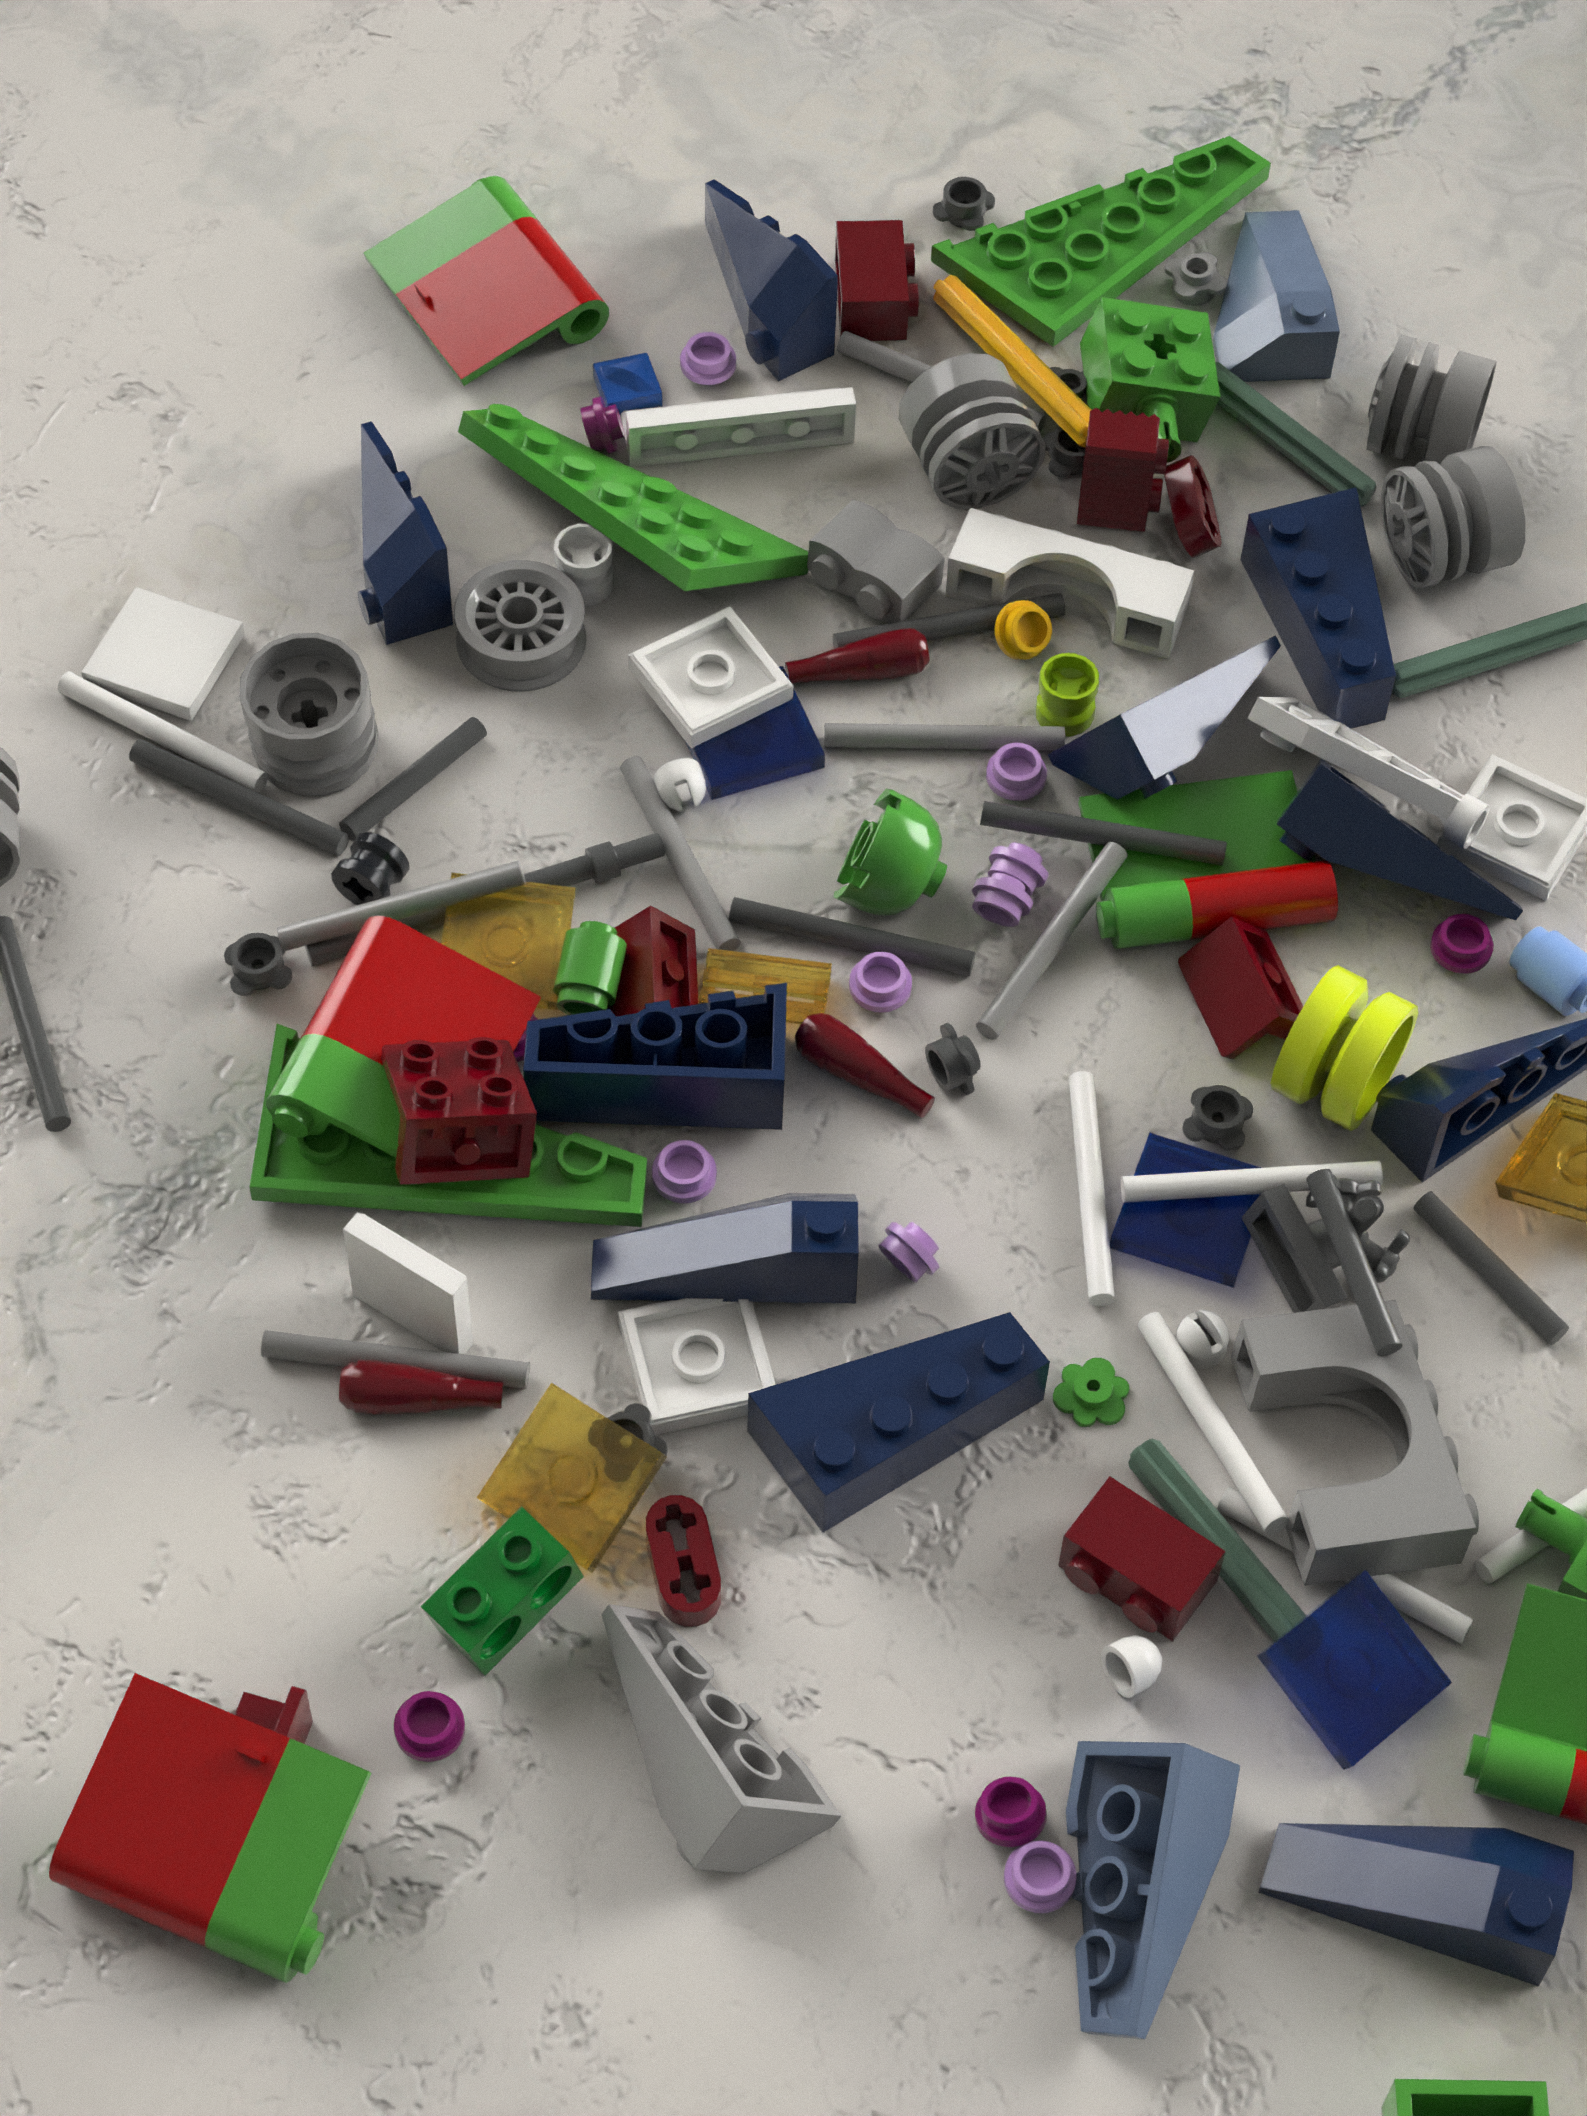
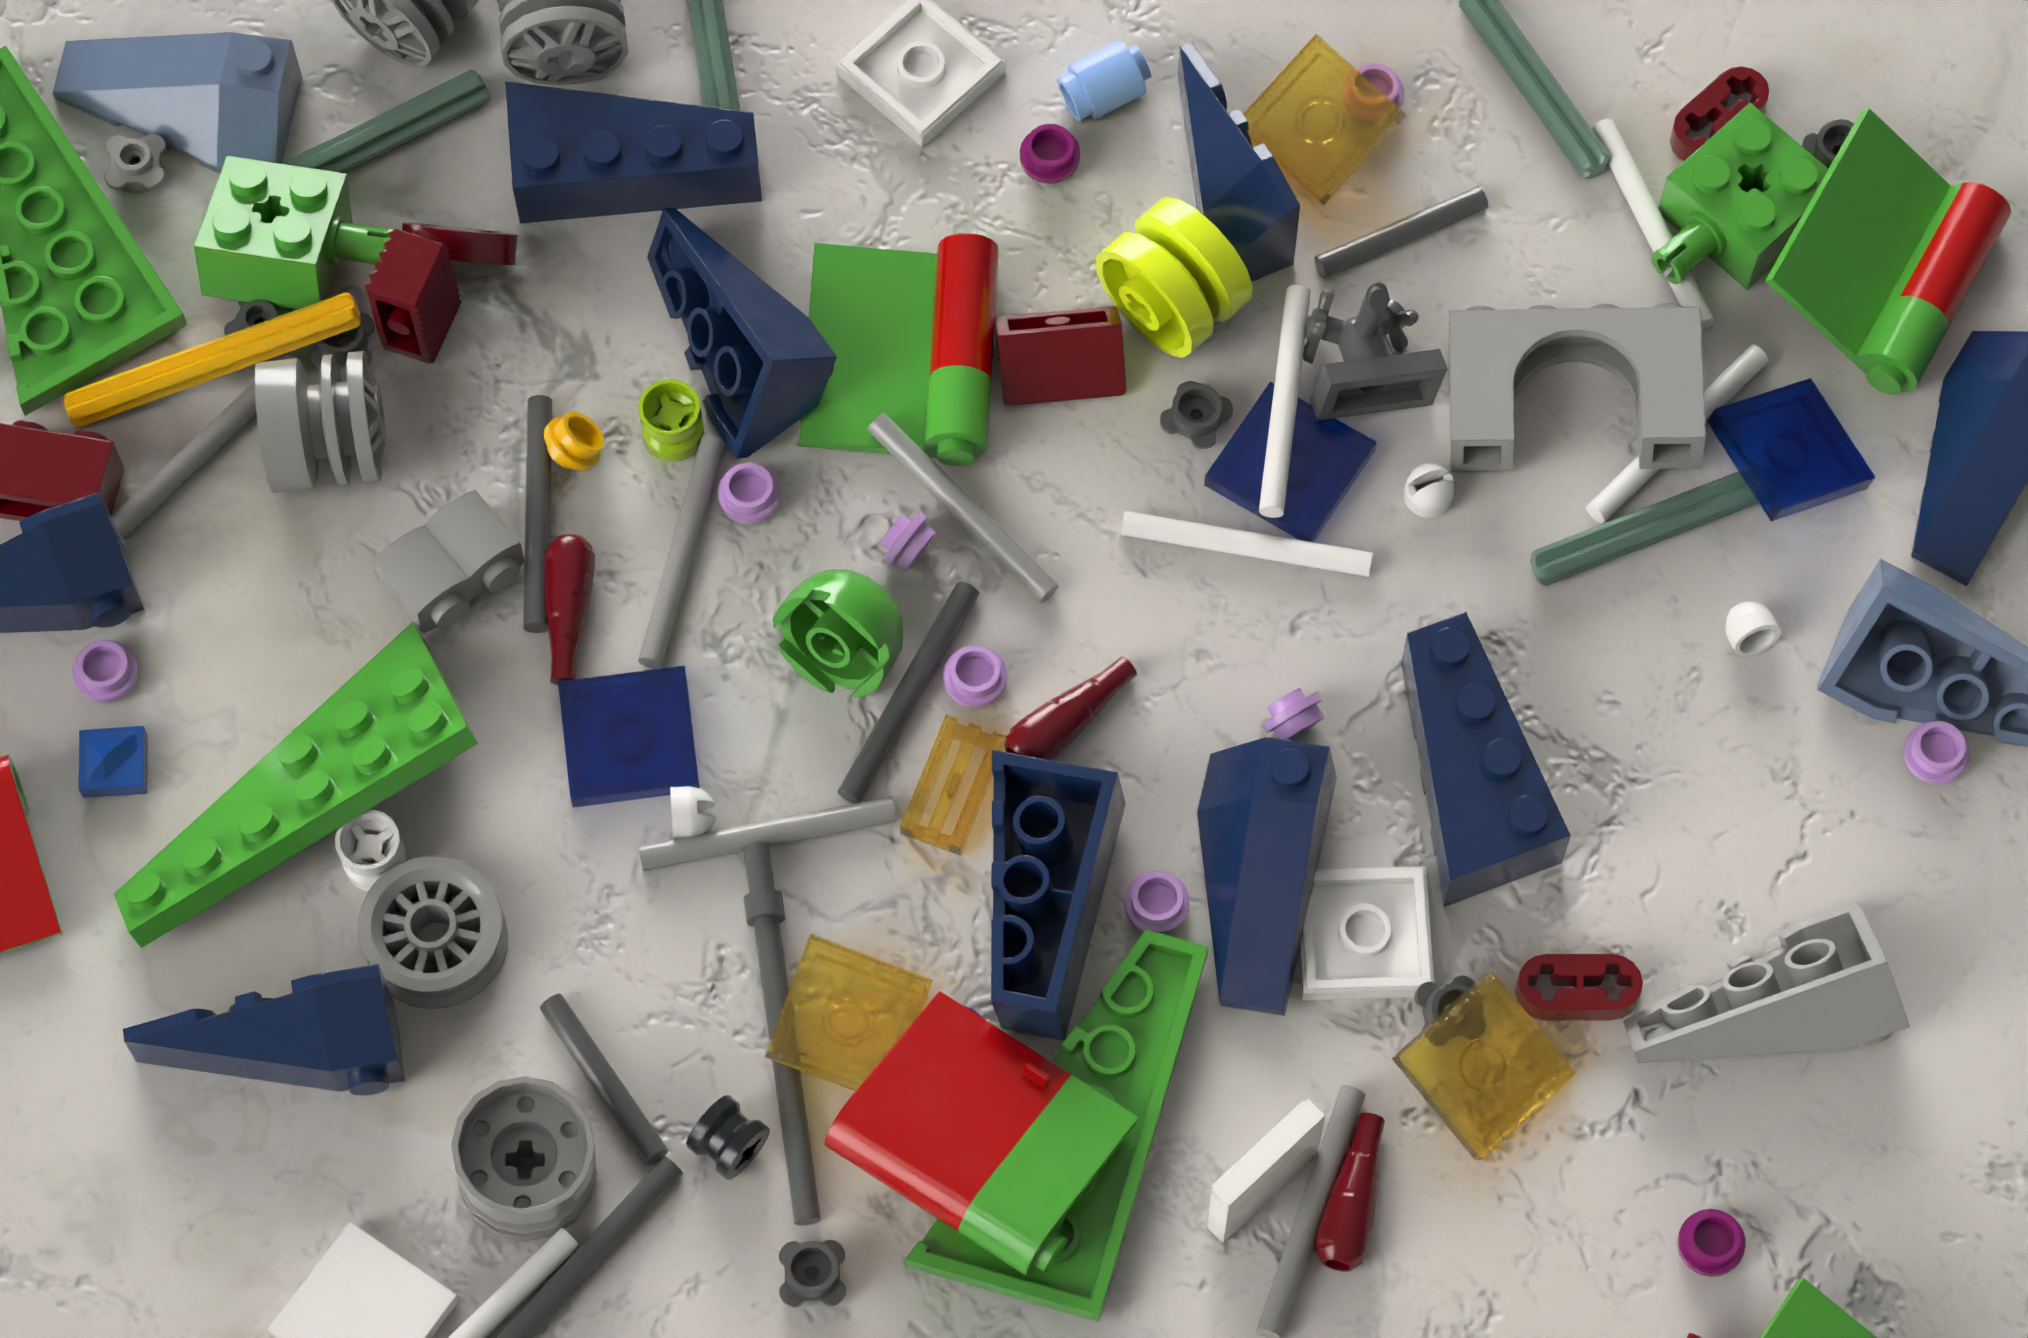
camera: 75 degrees left, 10 degrees up
(402, 905) = (797, 1107): light grey bar -> none
(460, 1111) = (1075, 1080): dark red bracket -> none
(502, 1591) = (1604, 1144): green brick -> none
(589, 968) = (913, 940): bright green brick -> none
(602, 425) = (175, 795): magenta plate -> none
(657, 962) = (922, 894): dark red panel -> none
(710, 677) = (562, 752): white tile -> none
(739, 426) = (202, 660): white panel -> none
(953, 1060) = (1089, 628): dark grey plate -> none
(1007, 559) = (567, 323): white arch -> none
(1010, 1812) = (1876, 761): magenta plate -> none
(1020, 863) = (873, 517): lavender plate -> none
(1087, 1406) = (1478, 588): bright green plant -> none
(1102, 832) = (853, 430): dark grey bar -> none
(1140, 1559) = (1655, 594): dark red piece -> none
(1213, 1424) = (1524, 501): white bar -> none
(1295, 724) = (784, 219): white plate -> none
(1354, 1262) = (1418, 328): dark grey bar -> none
(1358, 832) = (923, 202): dark blue wedge -> none

